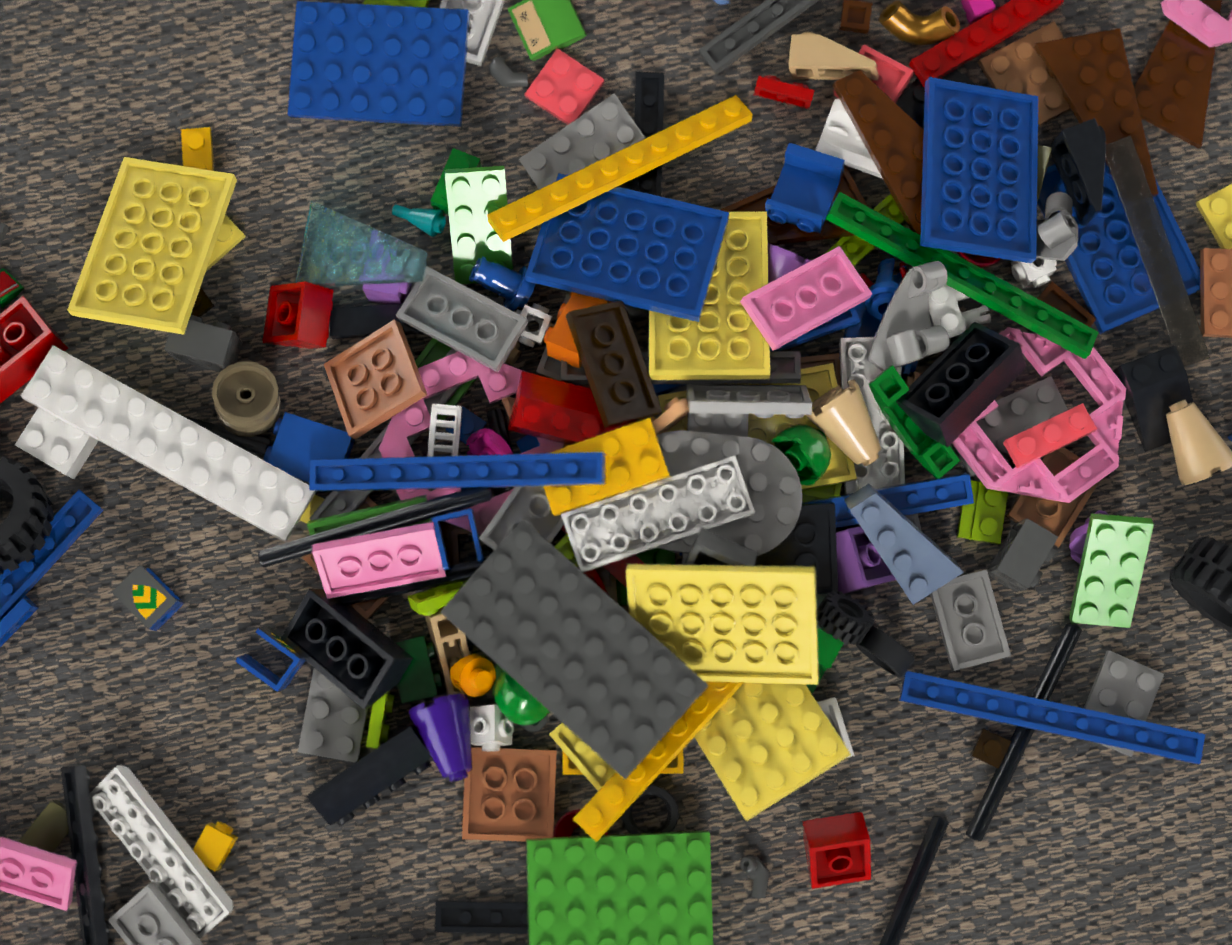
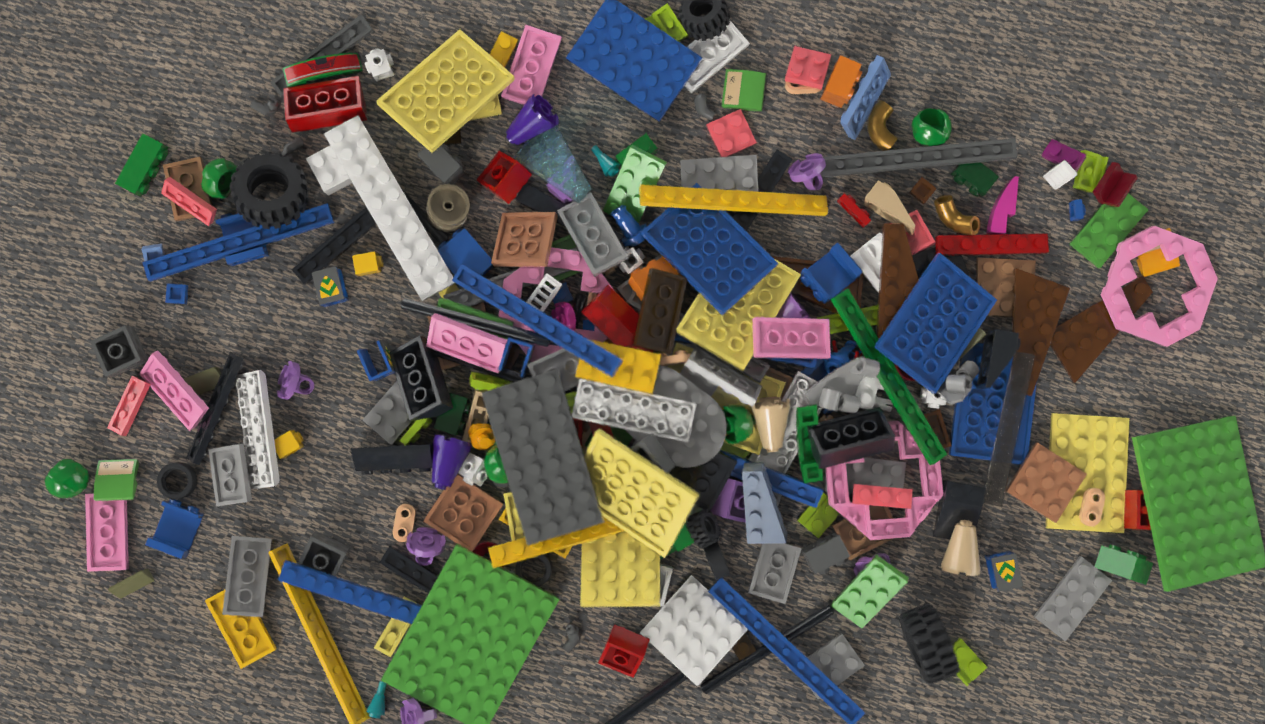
camera: 35 degrees right, 5 degrees up
(42, 264) = (379, 64): none -> white brick
(123, 539) = (335, 245): none -> black plate
(167, 756) = (290, 381): none -> medium lavender tile
(181, 537) = (367, 263): none -> yellow brick
(250, 151) = (532, 64): none -> bright pink plate
(291, 220) = (532, 120): none -> dark purple cone
(437, 857) = (402, 522): none -> light nougat plate
(484, 866) = (425, 544): none -> medium lavender tile
(694, 75) = (808, 169): none -> medium lavender tile
(913, 765) = (694, 630): none -> white plate

